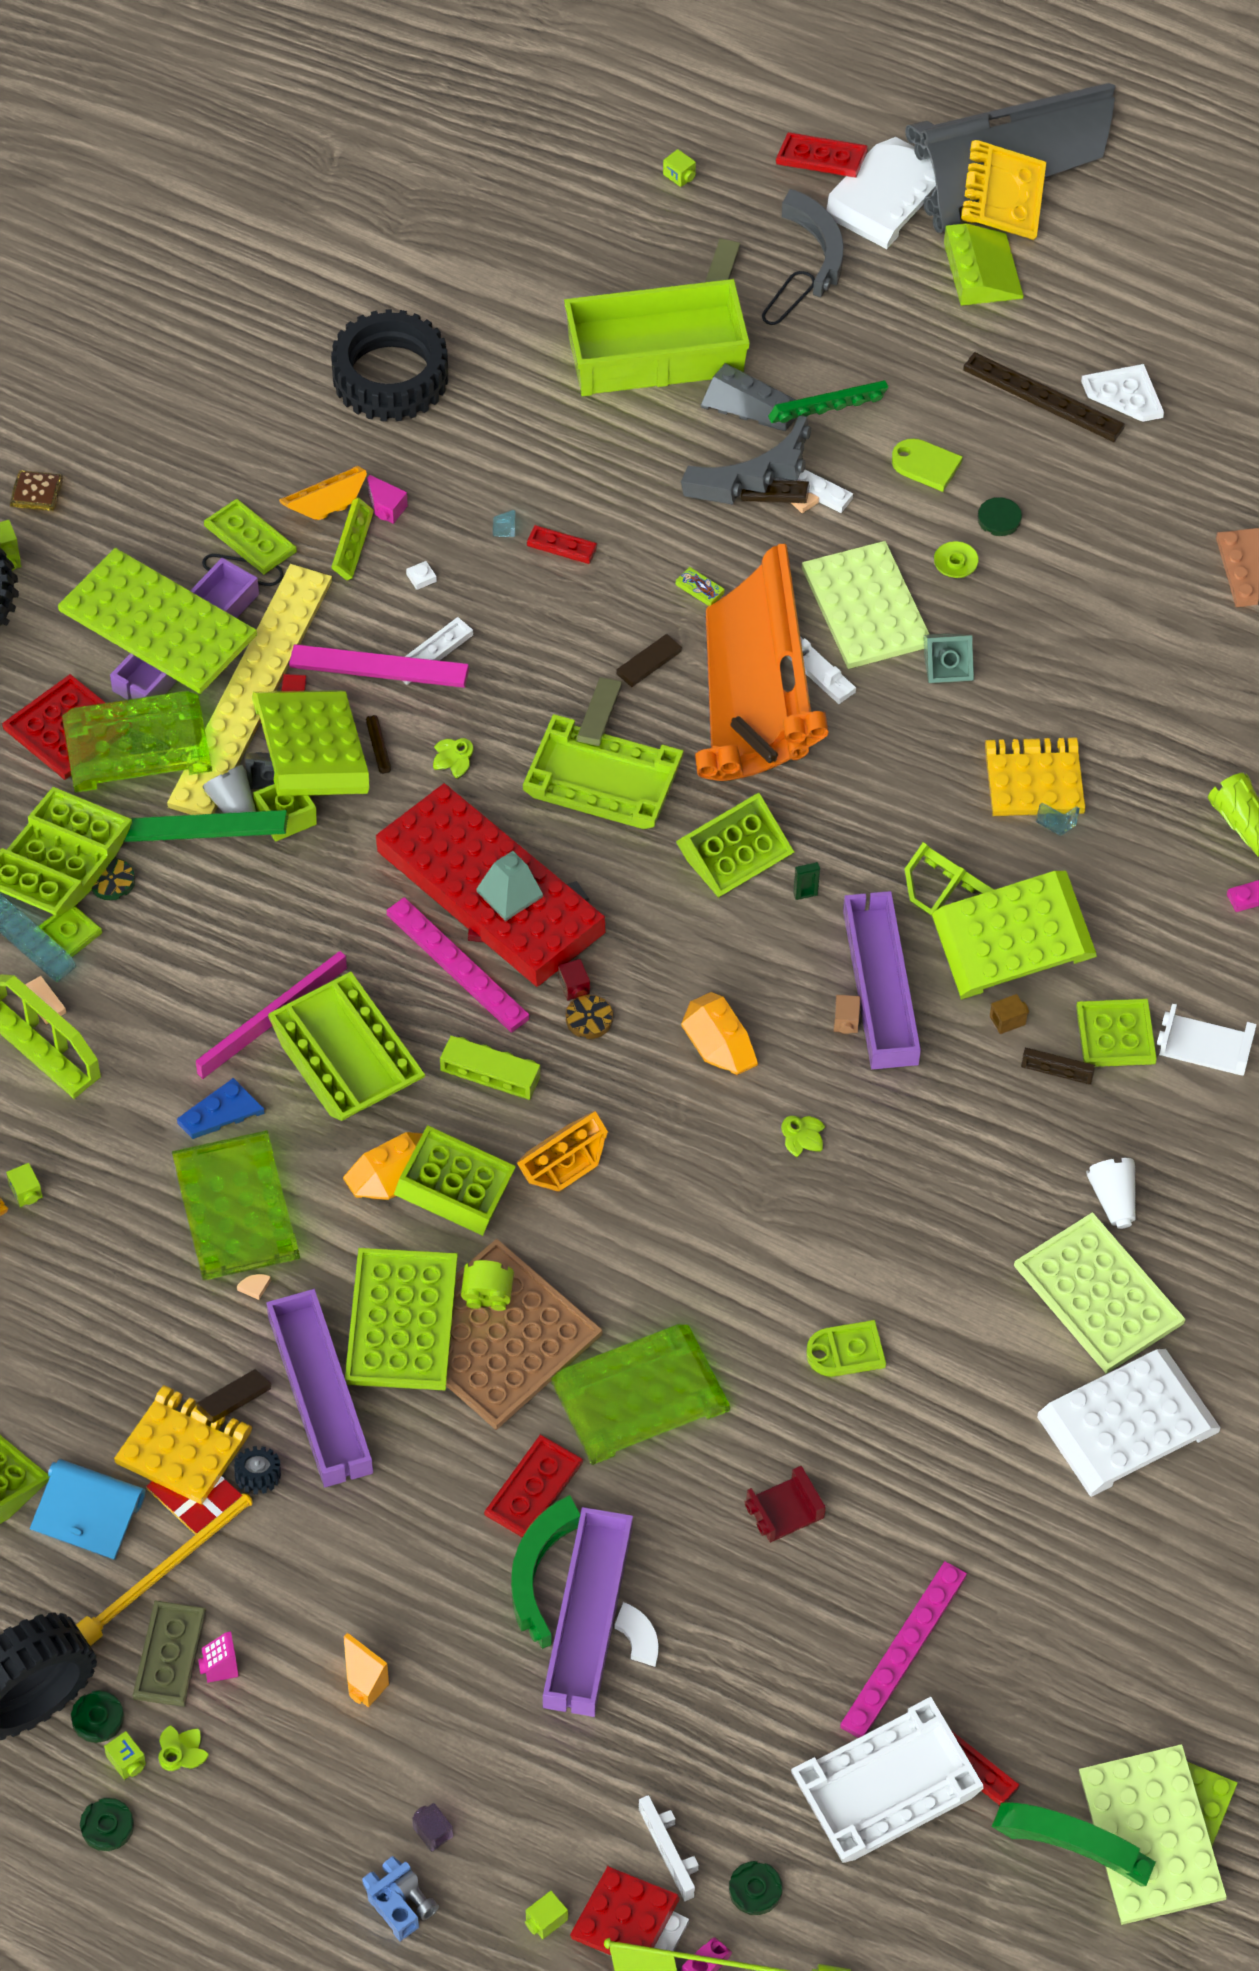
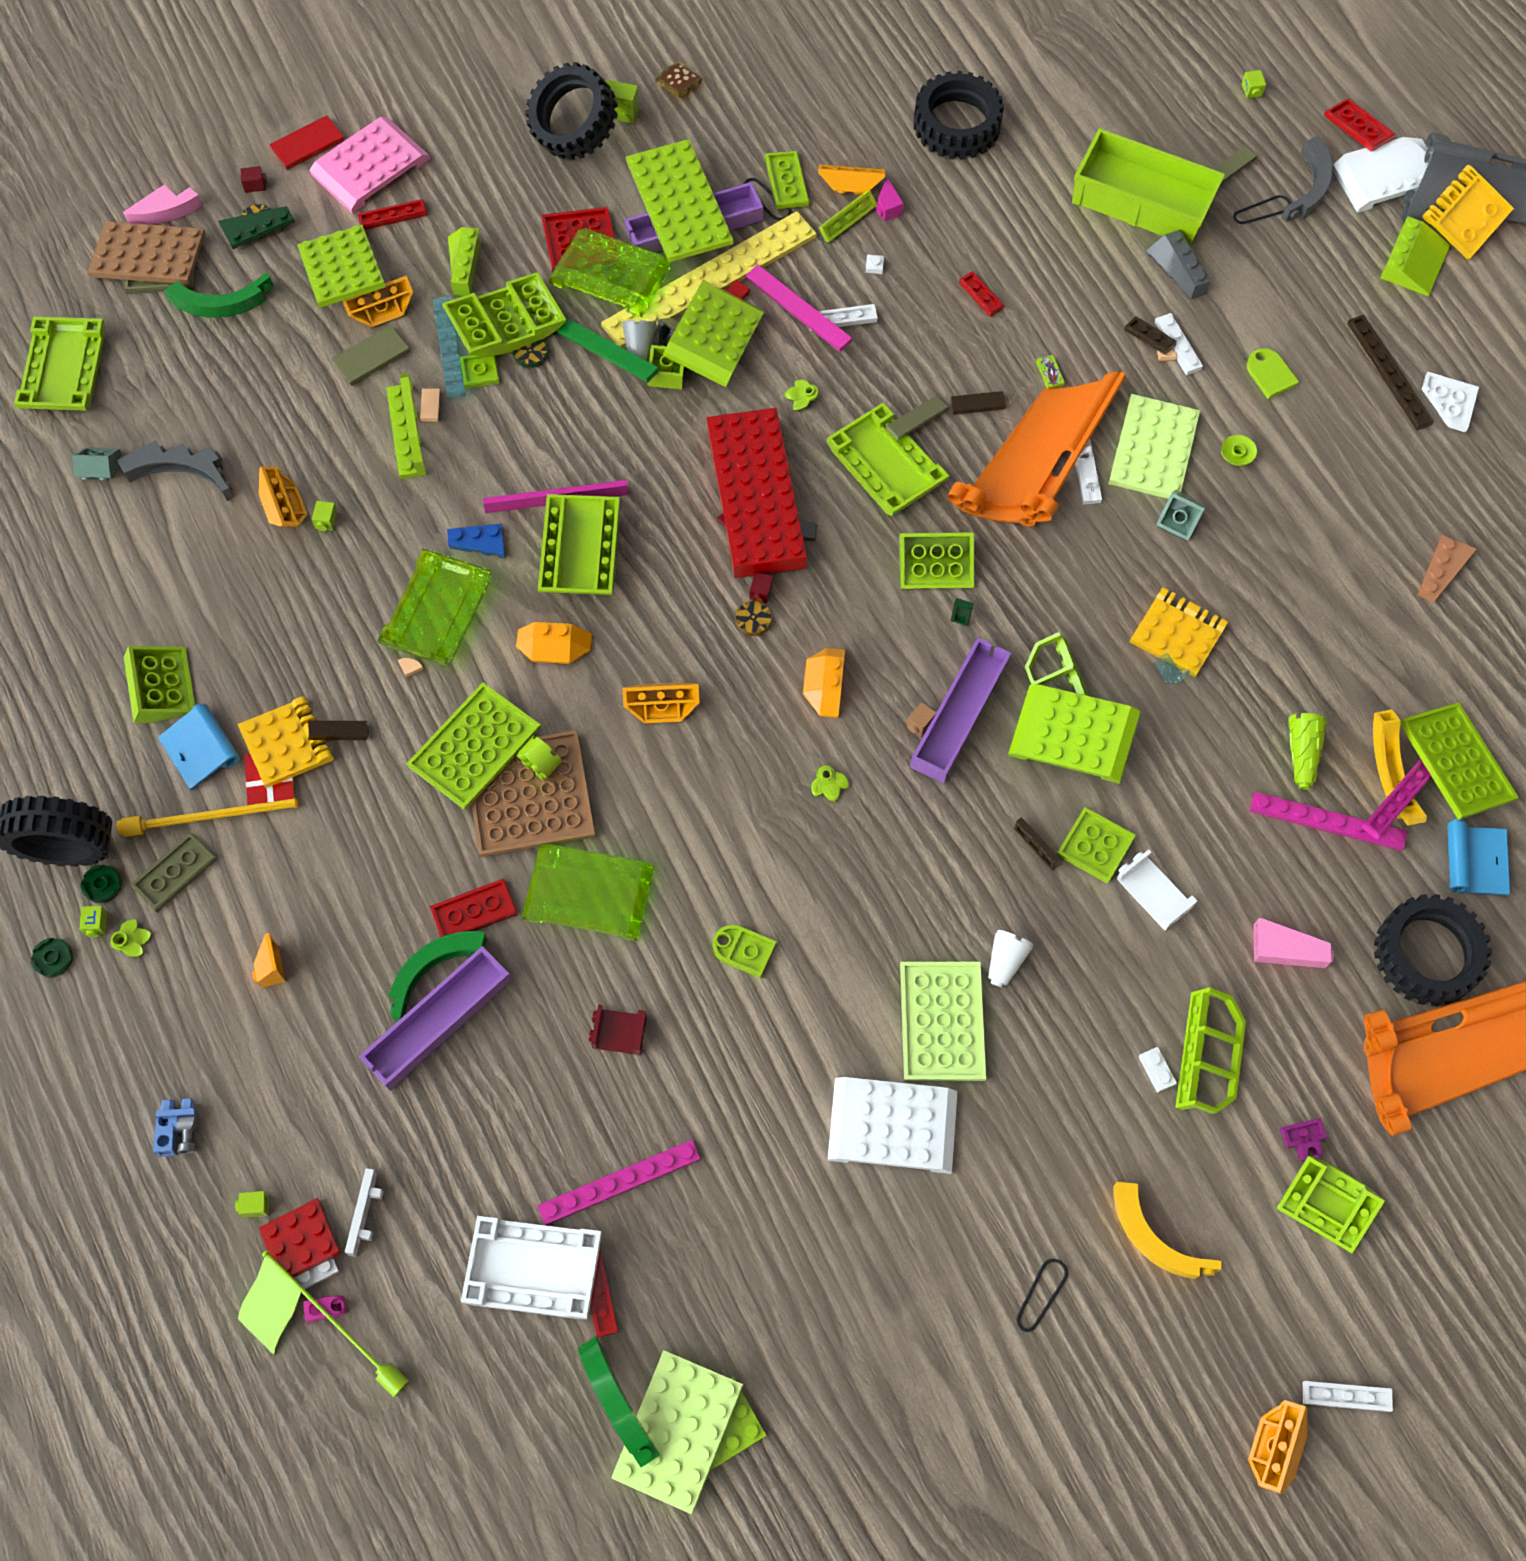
camera: 35 degrees right, 10 degrees up
(219, 1659) = (194, 897): dark pink slope -> none
(257, 1470) = (313, 788): black wheel -> none
(319, 1388) = (386, 765): medium lavender piece -> none
(378, 744) = (760, 359): dark brown axle -> none
(432, 1826) = (232, 1094): clear purple brick -> none
(454, 1180) = (577, 674): lime slope -> none
(458, 965) = (697, 534): dark pink plate -> none
(490, 1067) = (662, 613): lime brick -> none
(504, 524) = (954, 260): clear light blue slope -> none
(509, 886) = (757, 500): sand green slope -> none
(640, 1634) = (461, 1054): white tile -> none
(726, 482) = (1167, 317): dark grey arch -> none
(754, 739) = (1004, 498): dark brown axle -> none
(755, 1888) = (397, 1279): dark green tile -> none
(829, 401) = (1231, 293): green plate -> none
(999, 516) = (1294, 437): dark green tile -> none
(1009, 1013) = (1031, 786): pearl gold brick -> none

